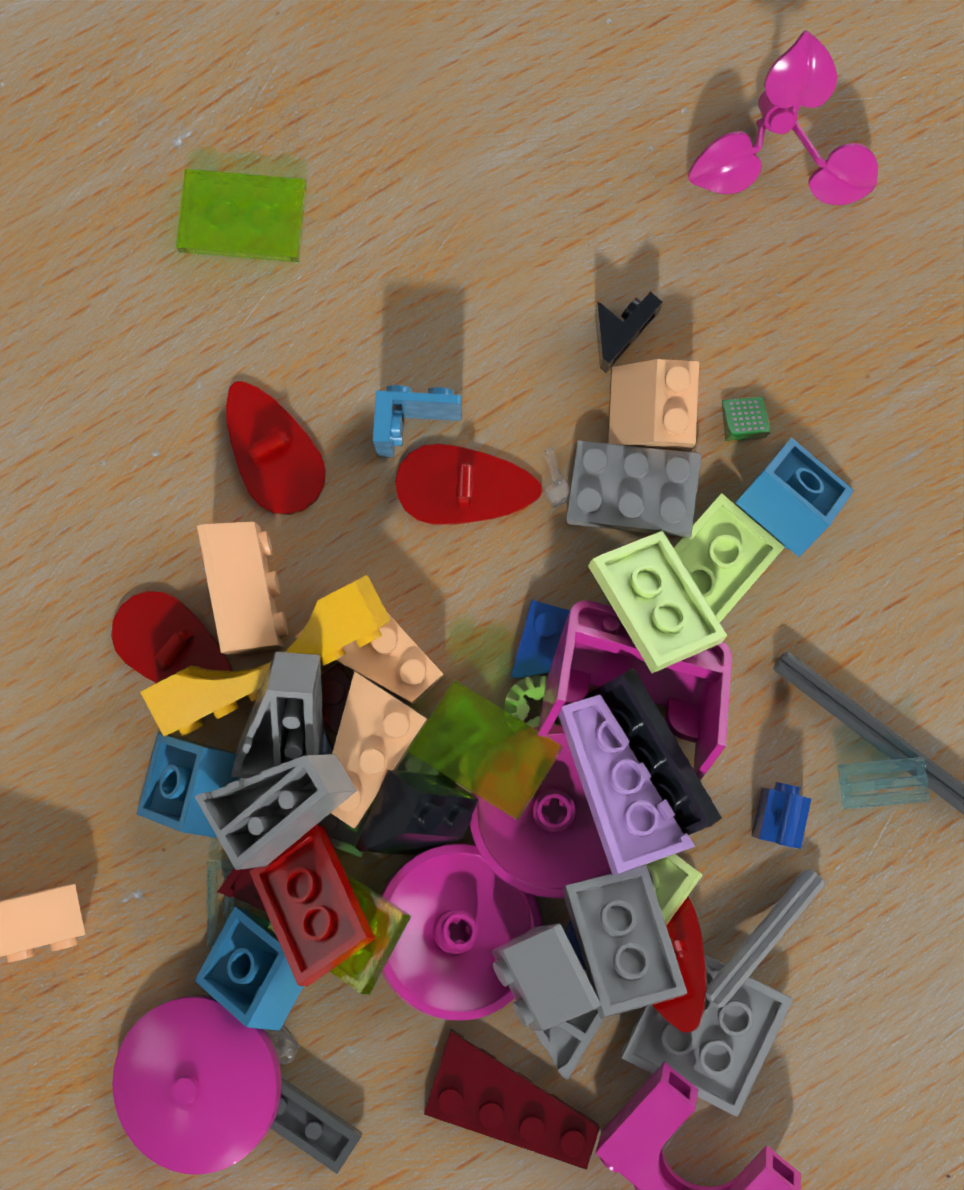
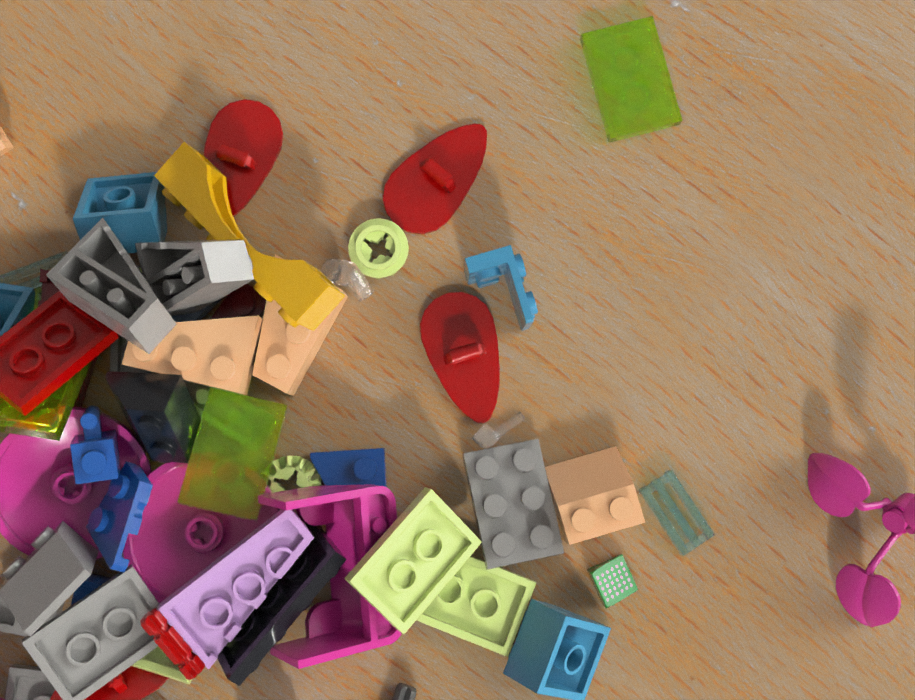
camera: 65 degrees right, 0 degrees up
(242, 587) = (302, 194): light nougat slope -> none
(304, 533) = (375, 231): none -> yellowish green gear
(341, 572) = (348, 274): none -> clear arm
(434, 886) = (94, 452): none -> blue brick
(507, 885) = (120, 514): none -> blue wing
(615, 335) = (643, 440): black slope -> none
(656, 871) = (172, 644): none -> red axle
(705, 346) = (694, 541): none -> clear light blue tile

